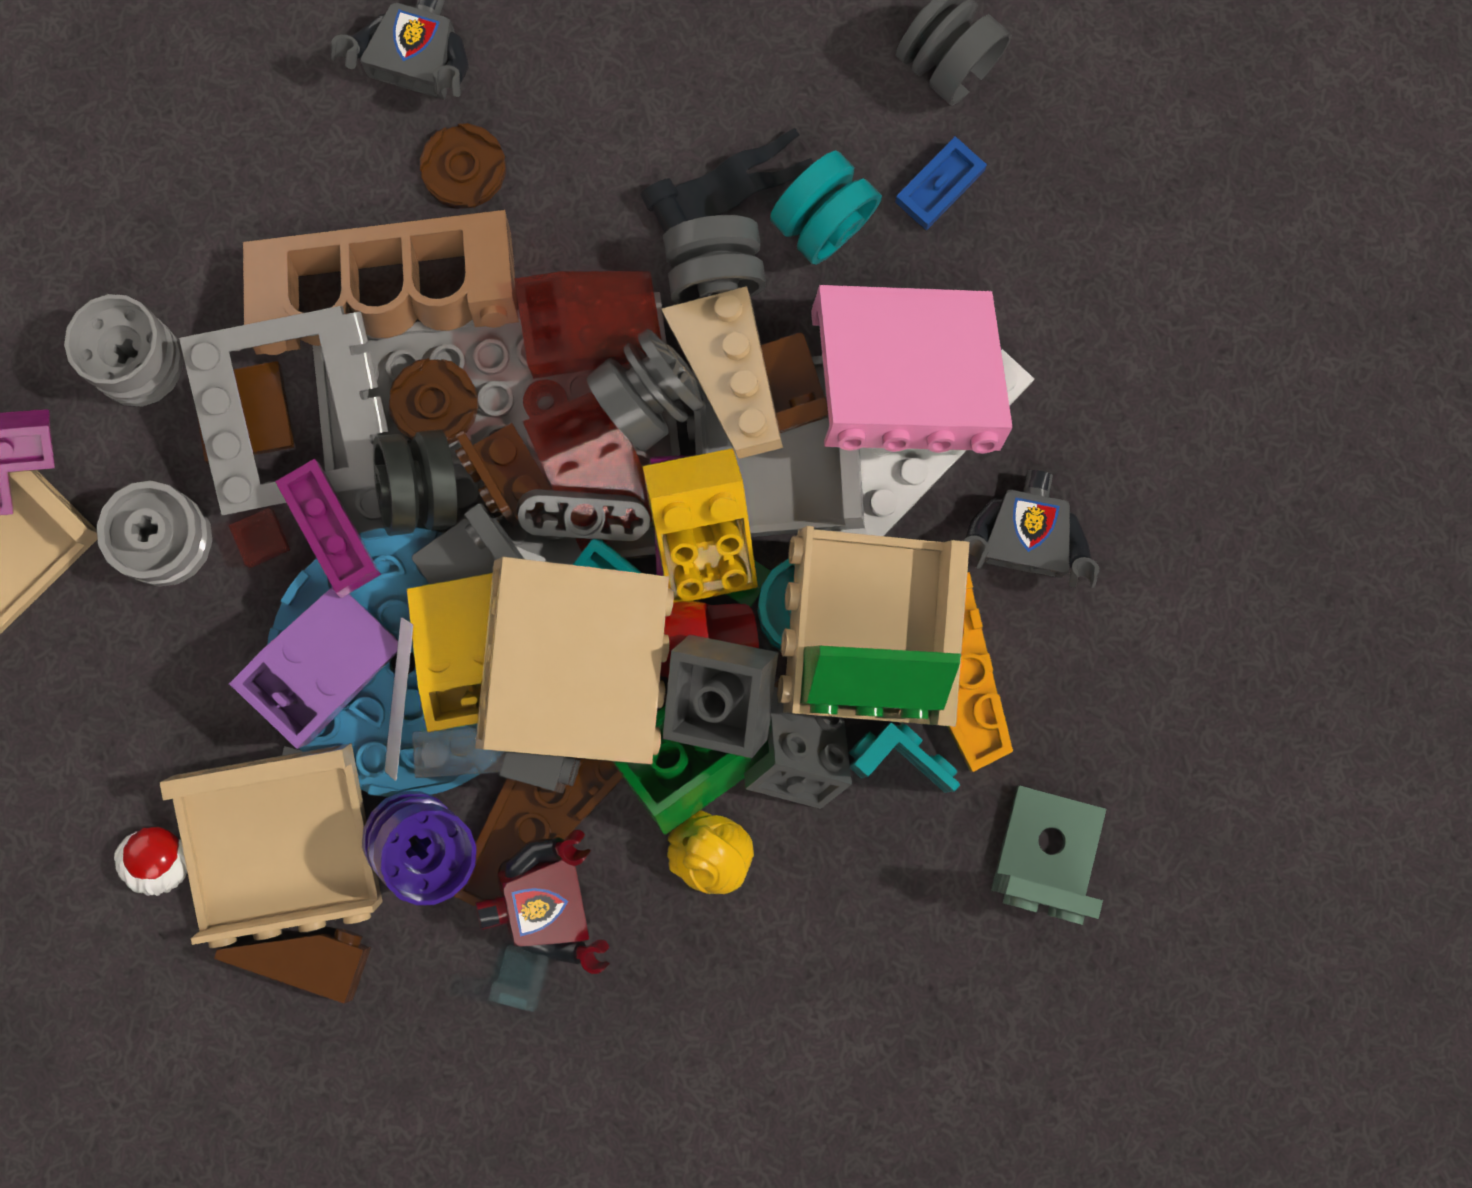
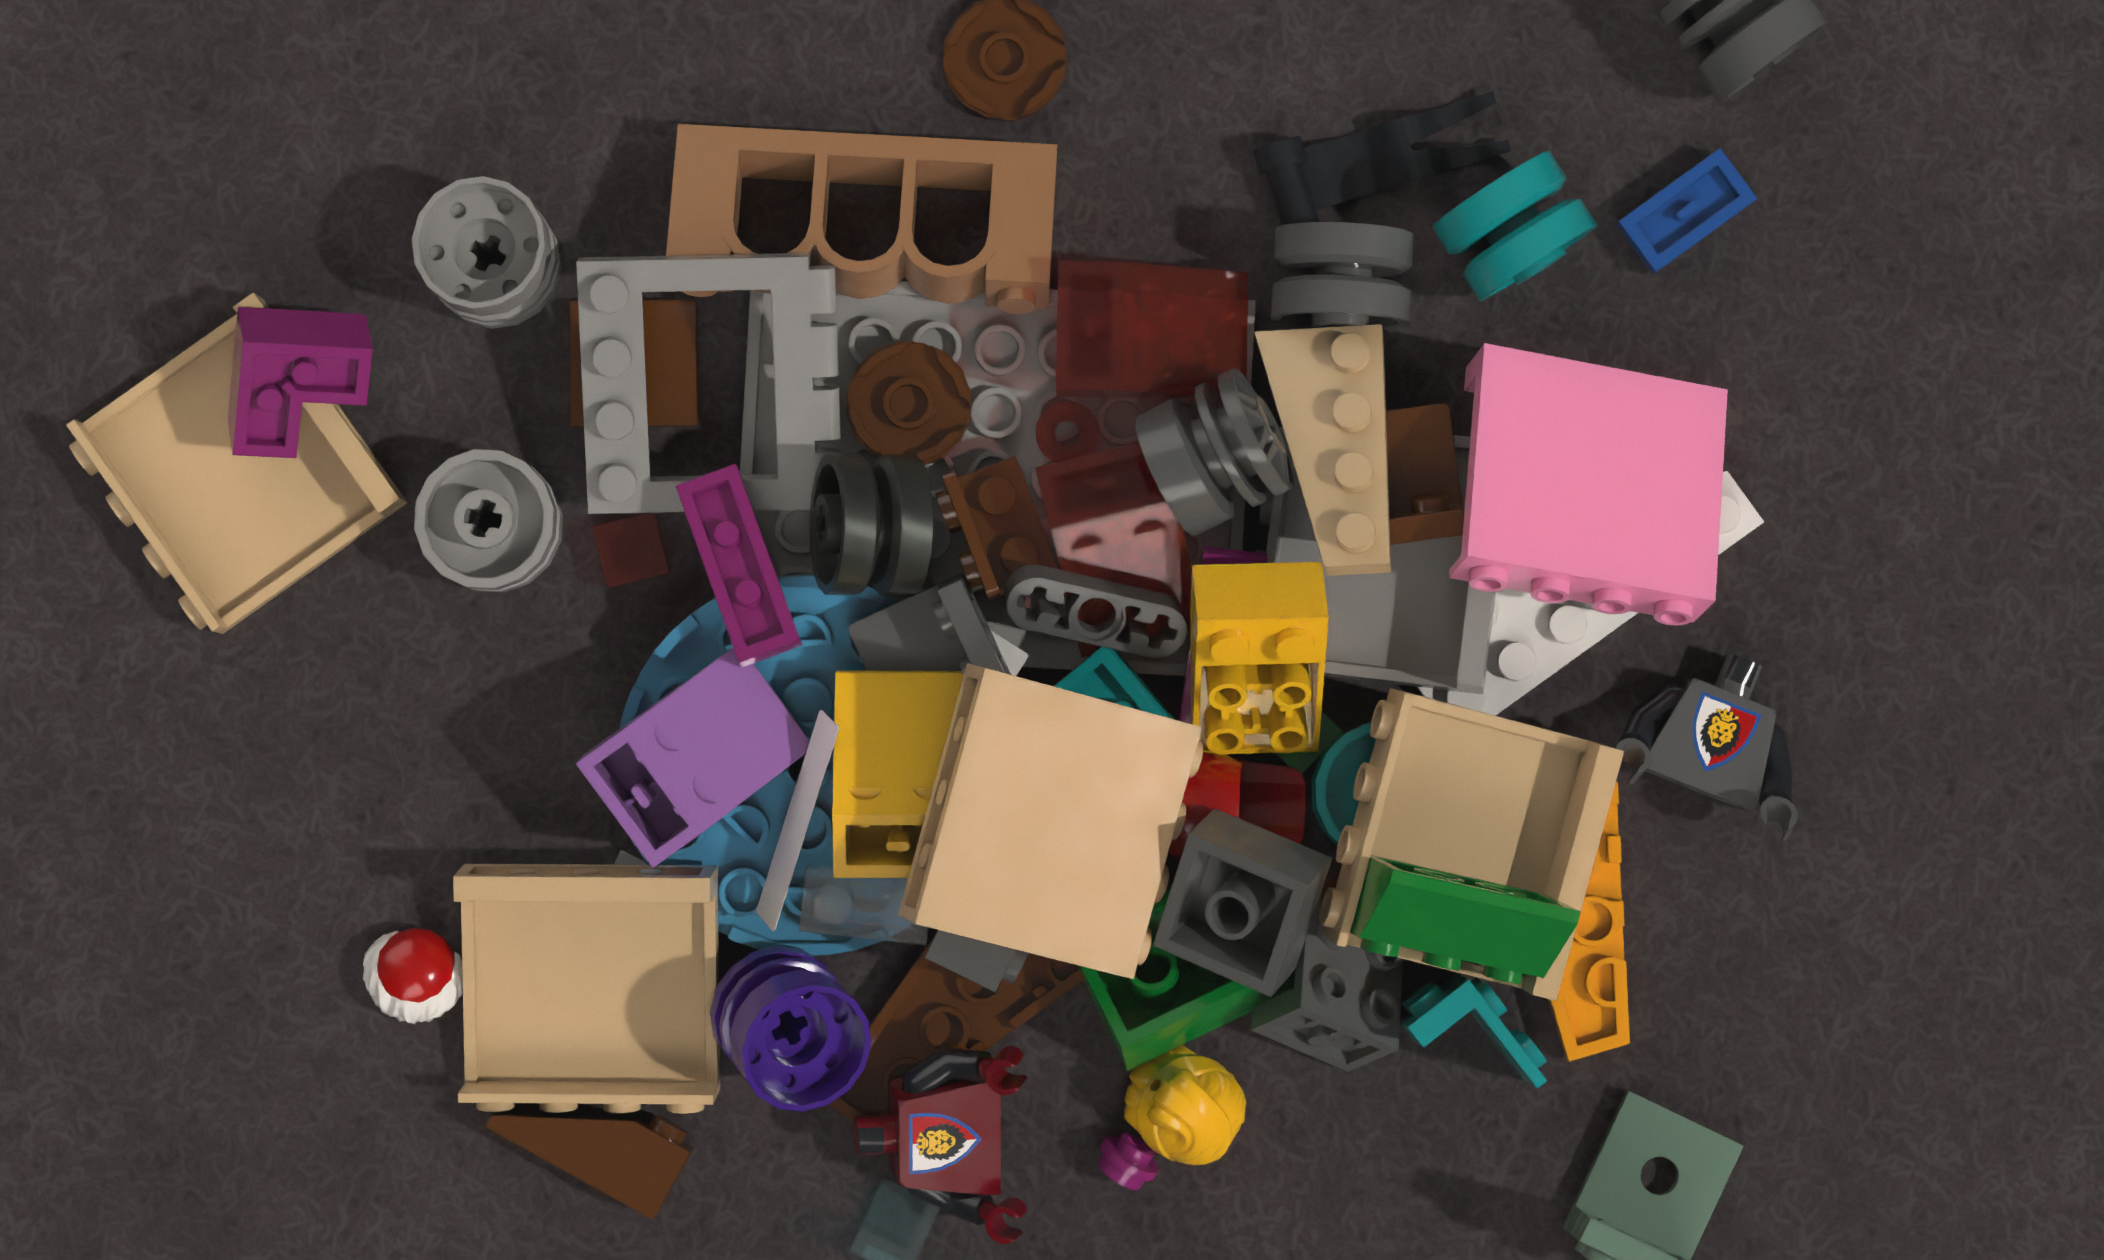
camera: 10 degrees right, 5 degrees up
(676, 899) = (1127, 1160): none -> magenta plate

